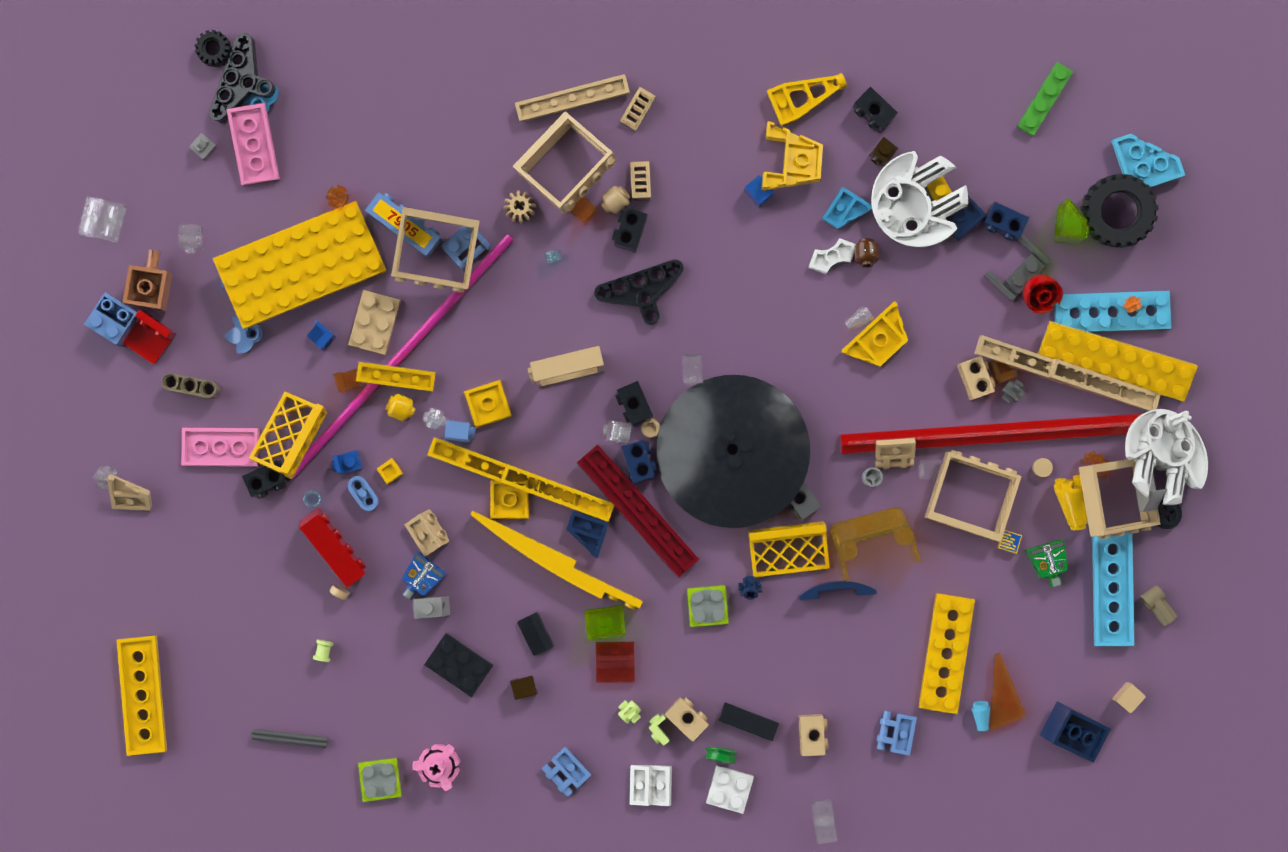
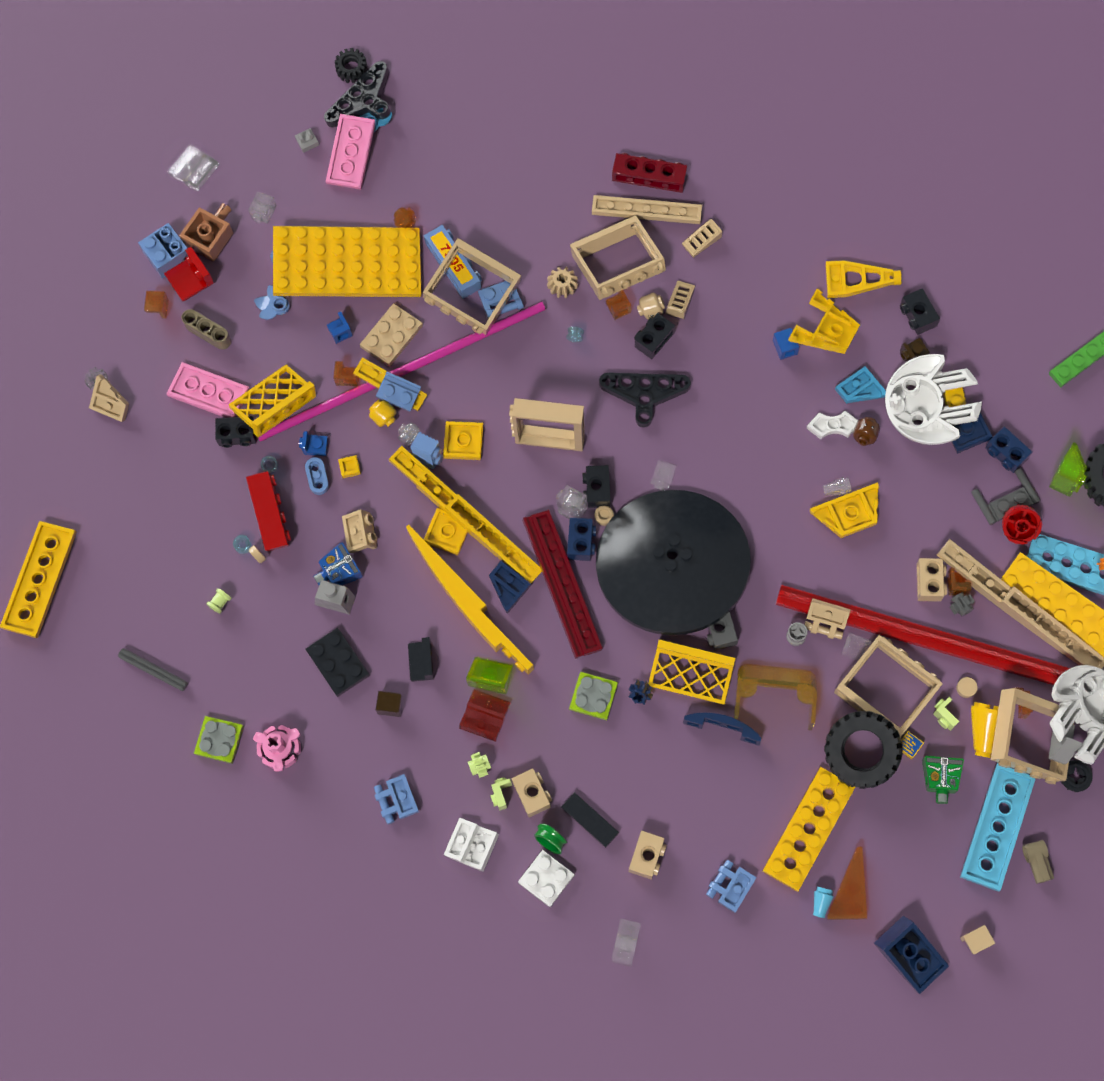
camera: 30 degrees right, 15 degrees down
(130, 378) = (156, 303): none -> clear orange panel
(315, 589) = (240, 538): none -> clear light blue bush
(407, 382) = (398, 391): none -> medium blue plate
(552, 65) = (656, 179): none -> dark red brick
(978, 590) = (851, 774): none -> black tyre
(1033, 506) = (945, 718): none -> yellowish green bracket

